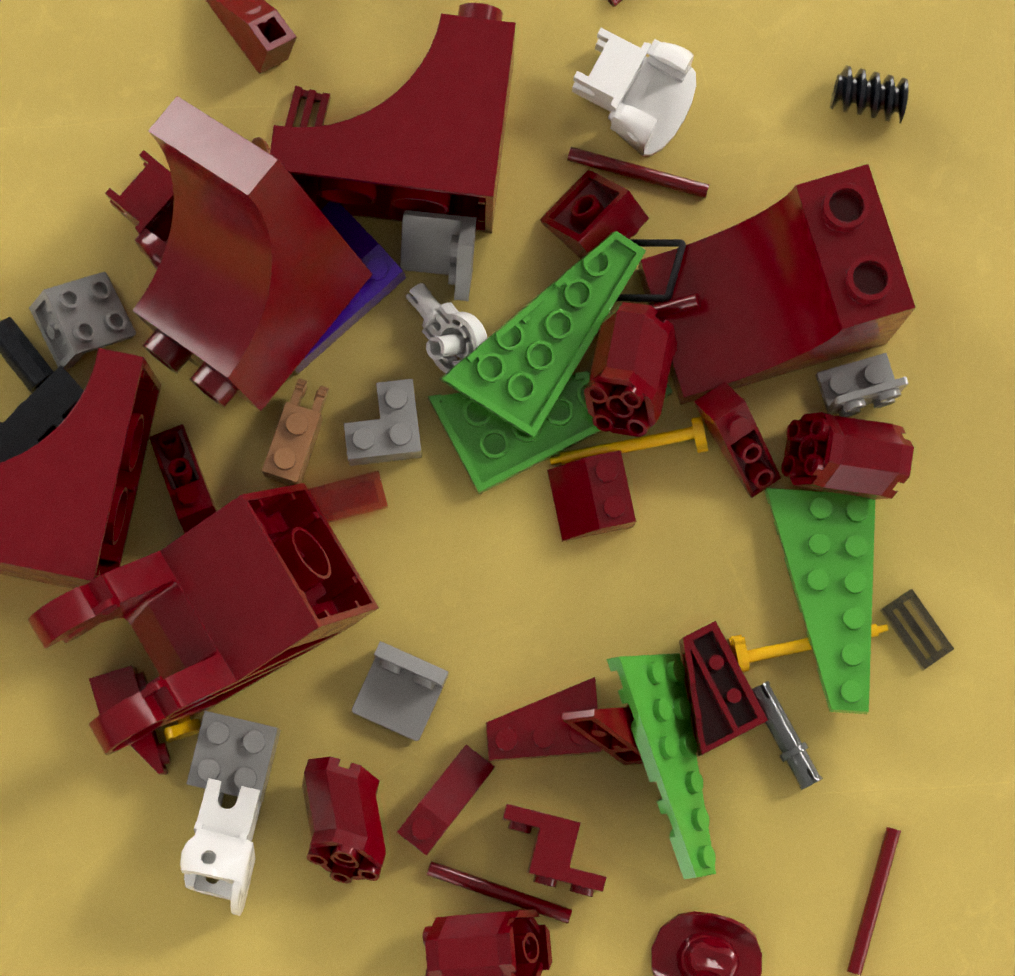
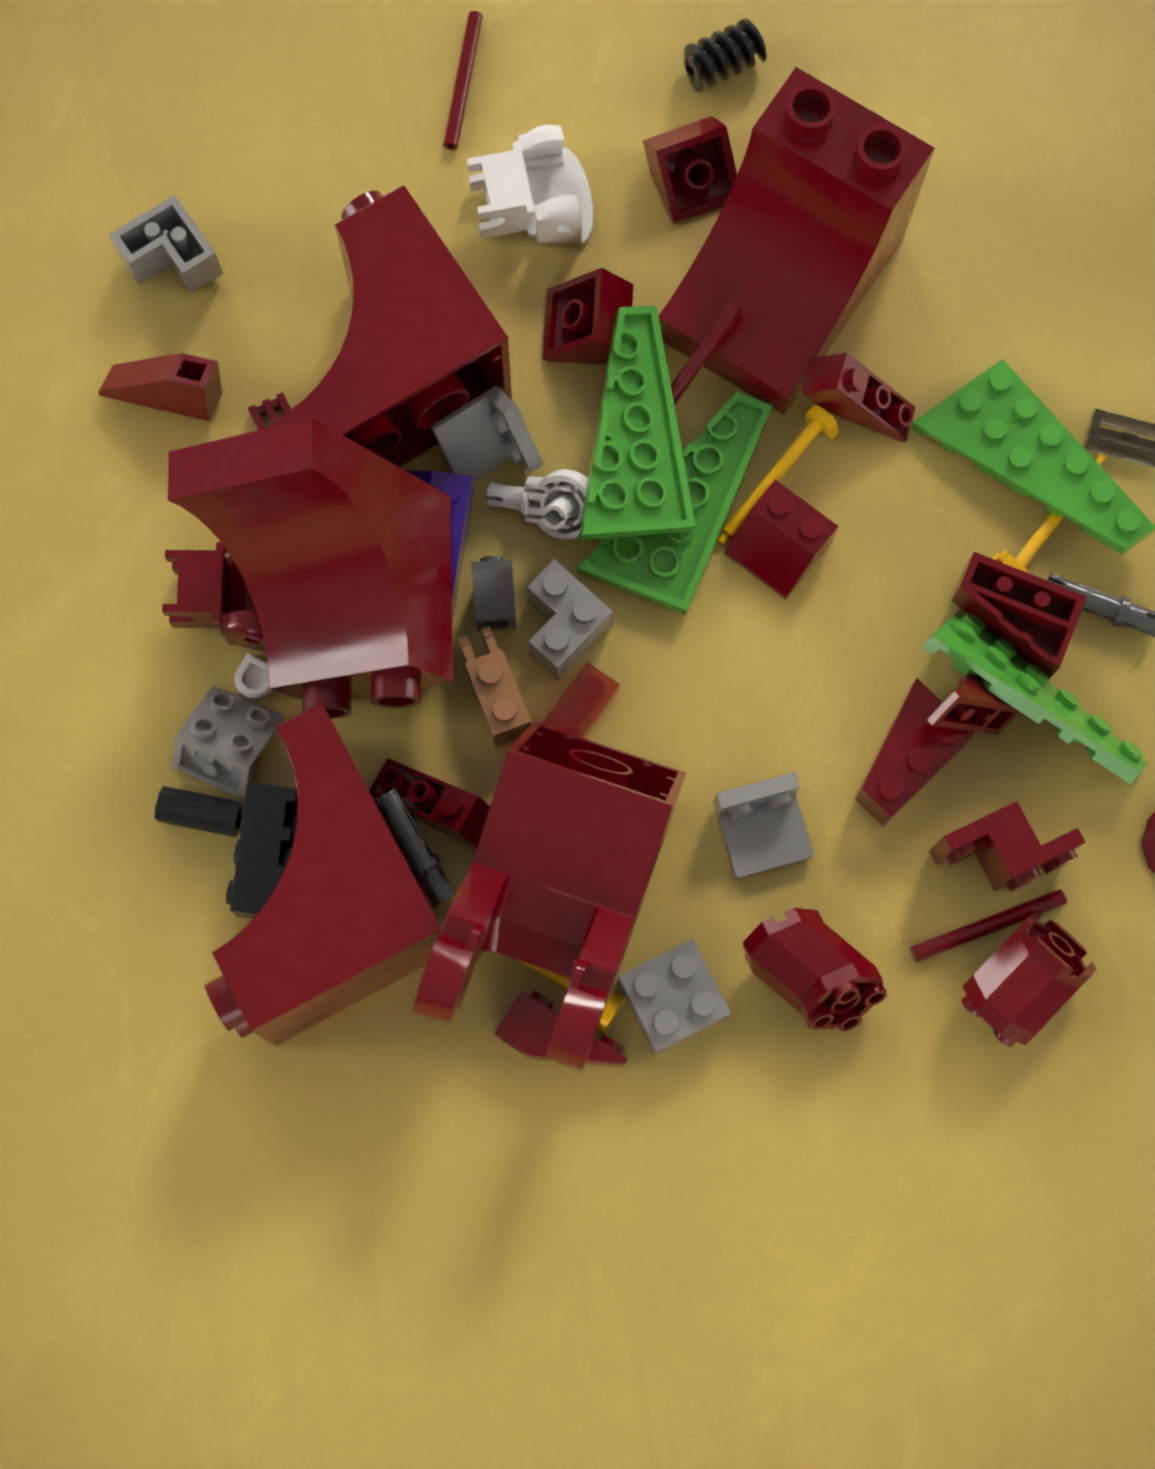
camera: 35 degrees left, 5 degrees down
(134, 287) = (253, 678): none -> white tile
(145, 503) = (415, 848): none -> dark grey pin
(222, 846) = (736, 1078): white piece -> none
(350, 368) = (494, 593): none -> dark grey slope
(445, 800) = (880, 888): dark red slope -> none
(630, 370) = (729, 407): dark red brick -> none
(638, 172) = (589, 260): dark red bar -> none
(674, 273) = (681, 277): black piece -> none
(771, 161) = (692, 167): none -> dark red slope
(847, 455) = (957, 341): dark red brick -> none
(859, 384) = (914, 284): light grey bracket -> none

